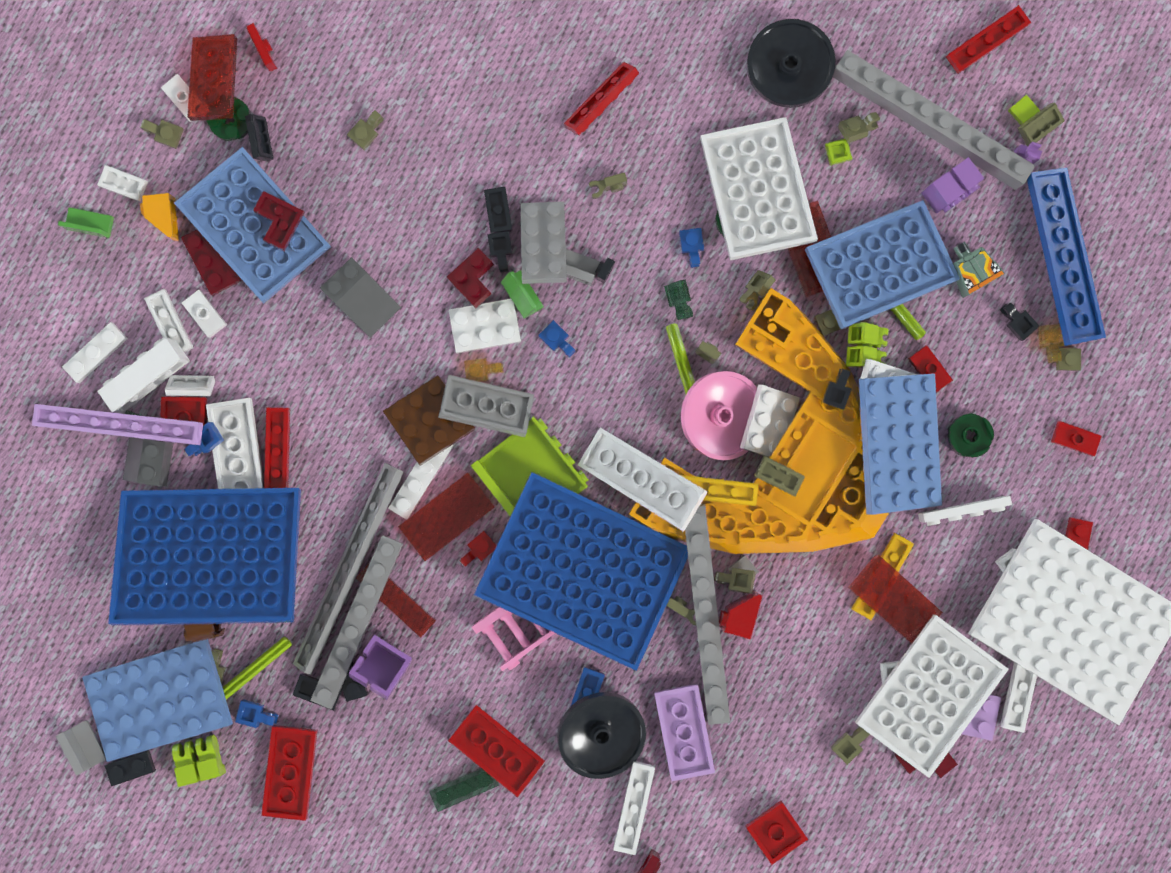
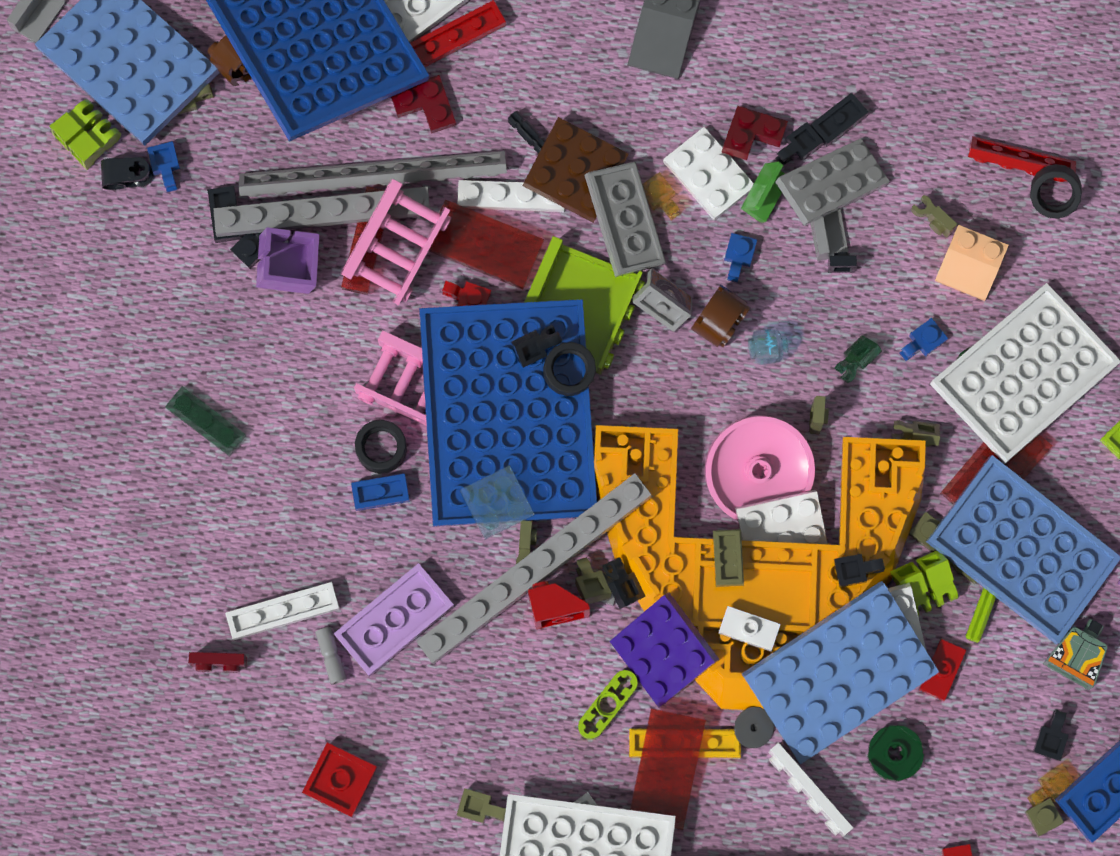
camera: 60 degrees right, 10 degrees down
(130, 768) = (40, 71): black plate -> none
(244, 749) = (120, 173): none -> black piece
(256, 666) = (215, 139): lime axle -> none
(289, 772) = (123, 232): red plate -> none
(317, 493) = (430, 98): none -> dark red plate
(379, 438) = (526, 130): none -> black axle
(389, 584) = (369, 243): none -> bright pink fence
(496, 751) = (264, 430): red plate -> none
(548, 528) = (532, 345): none -> black plate
(548, 689) = (375, 426): none -> black tyre
(562, 412) = (664, 301): none -> light grey panel
(596, 511) = (584, 354): none -> black tyre
(597, 379) = (719, 316): none -> reddish brown brick
(601, 735) = (342, 530): black dish -> none
(636, 358) = (767, 346): none -> clear light blue head
(642, 479) = (641, 416): white plate -> none
(646, 617) = (497, 502): none -> clear light blue plate
(654, 92) = (1055, 211): none -> black tyre
(656, 178) = (971, 262): none -> light nougat slope
(680, 356) = (800, 391): lime axle -> none
(681, 789) = (331, 658): none -> light grey piece
(727, 490) = (672, 496): yellow tile -> none
(755, 557) = (625, 586): none -> black plate
(815, 556) = (664, 650): none -> dark purple plate
(835, 618) = (614, 683): none -> lime beam
(836, 489) = (749, 628): none -> white plate
(899, 524) = (753, 727): none -> dark grey piece

